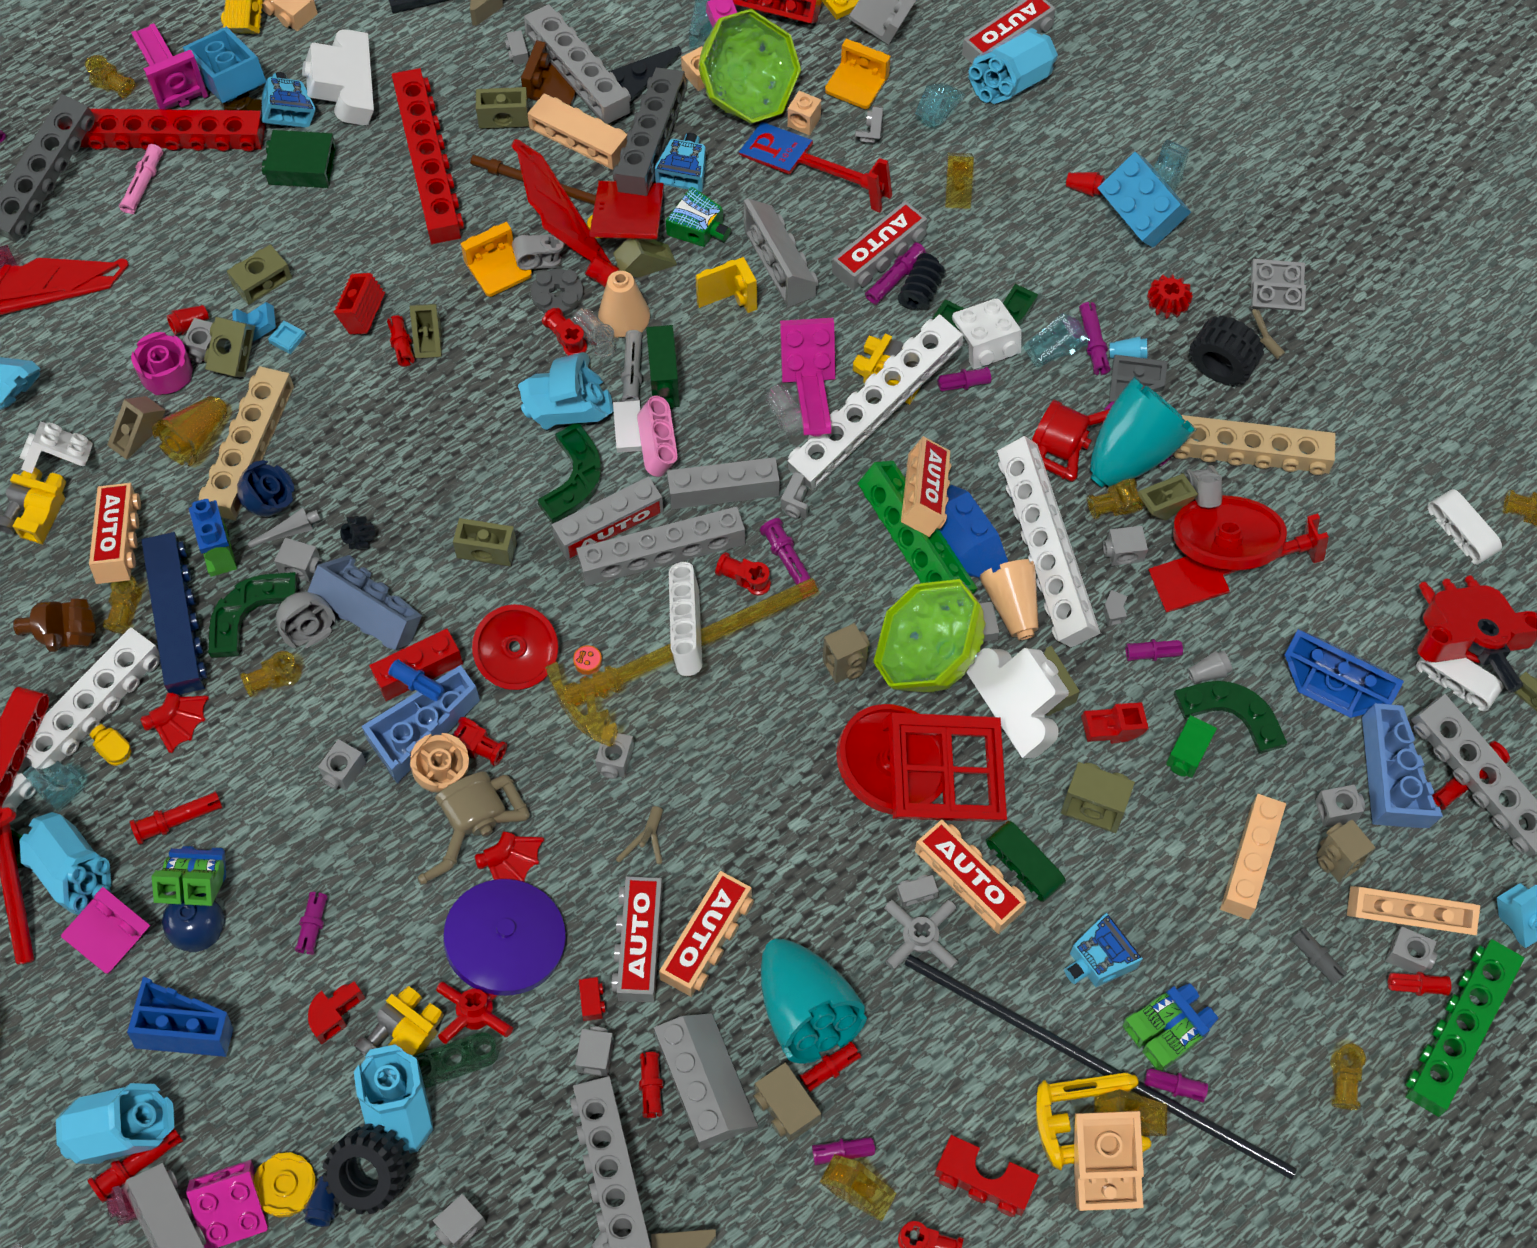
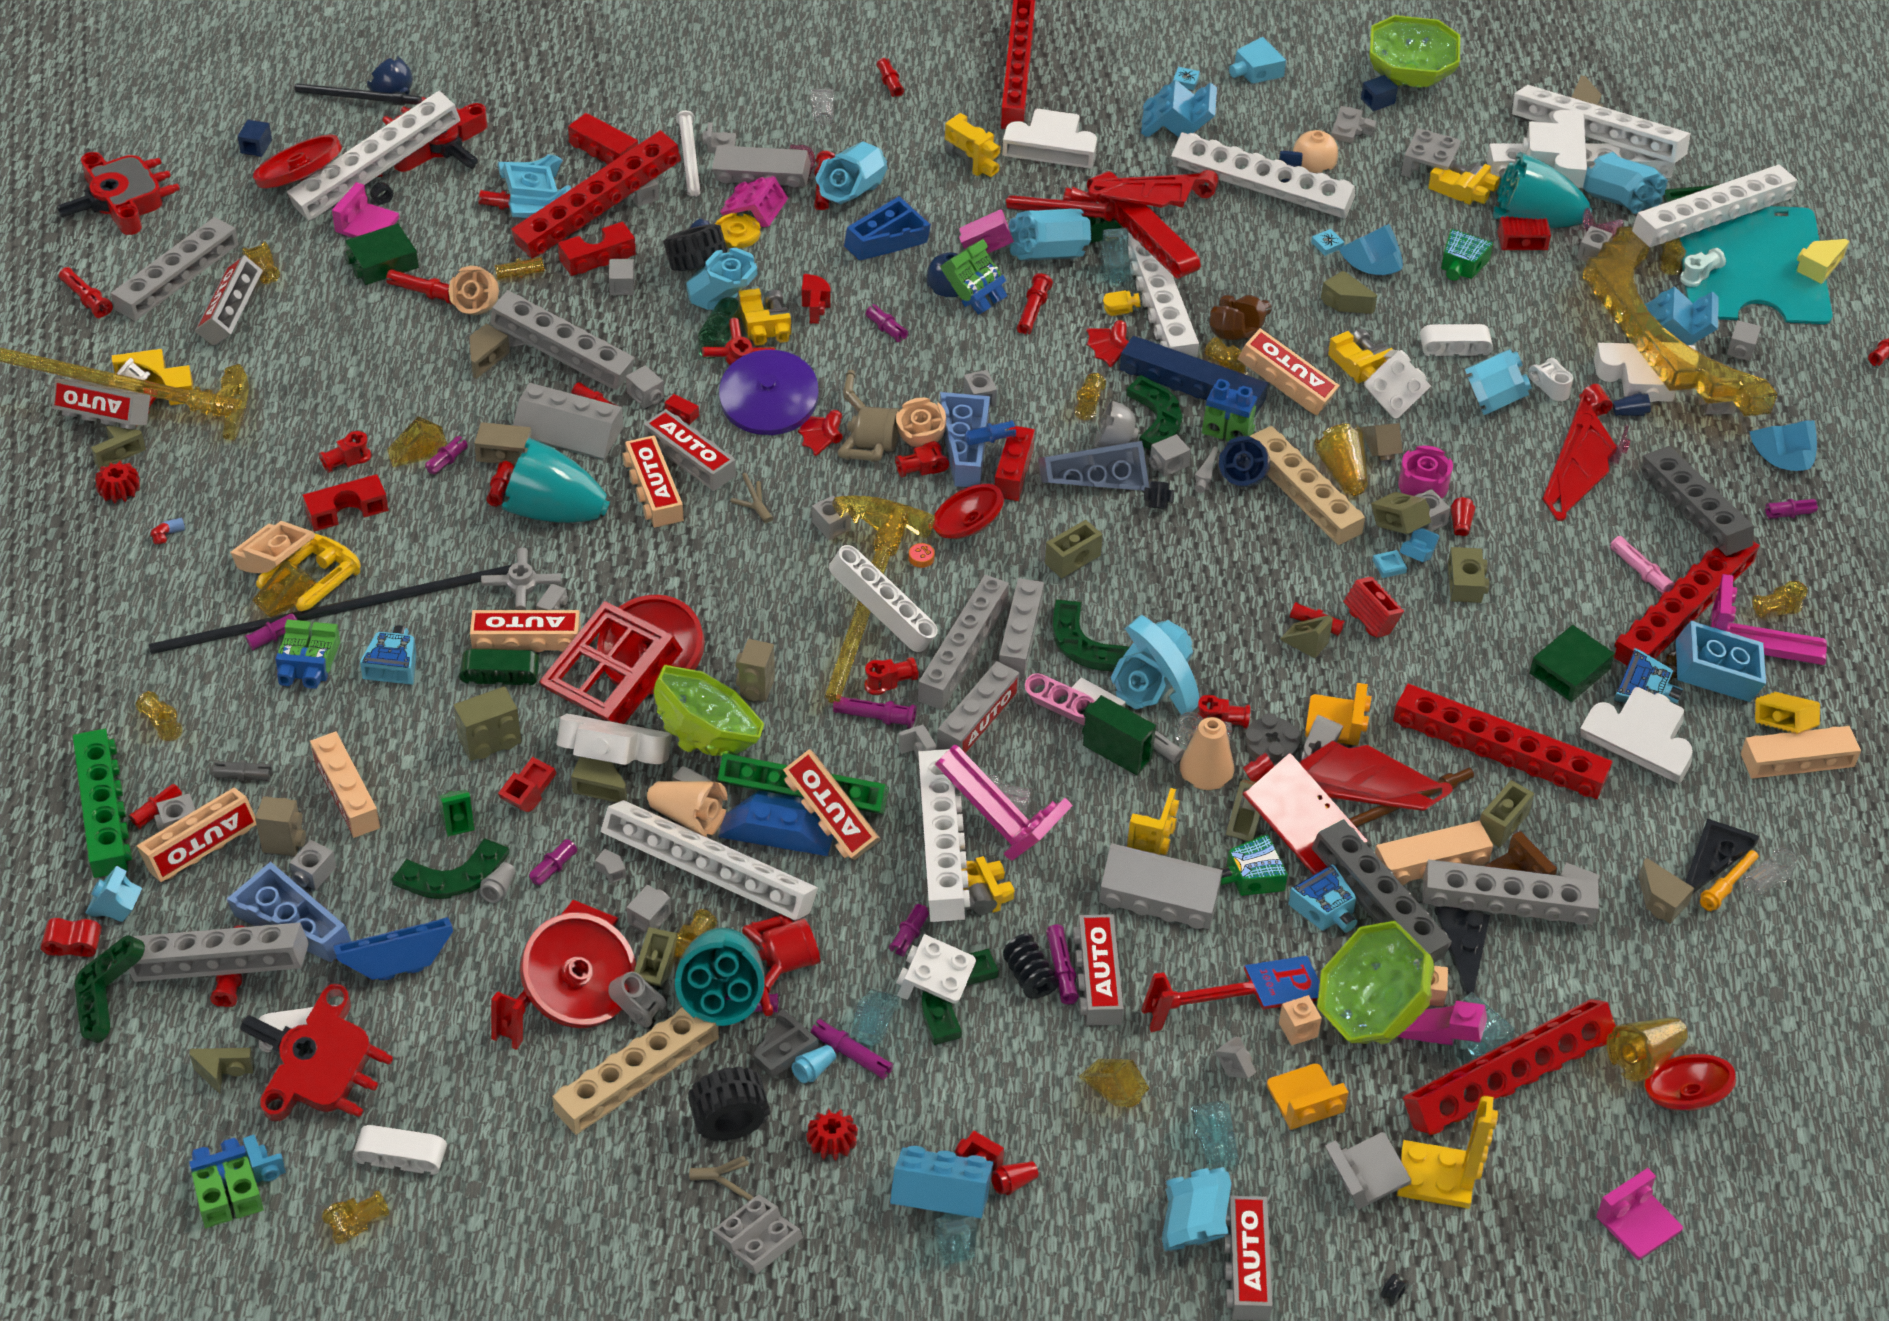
camera: 130 degrees right, 15 degrees down
(1090, 212) = (981, 1146): none -> red bracket

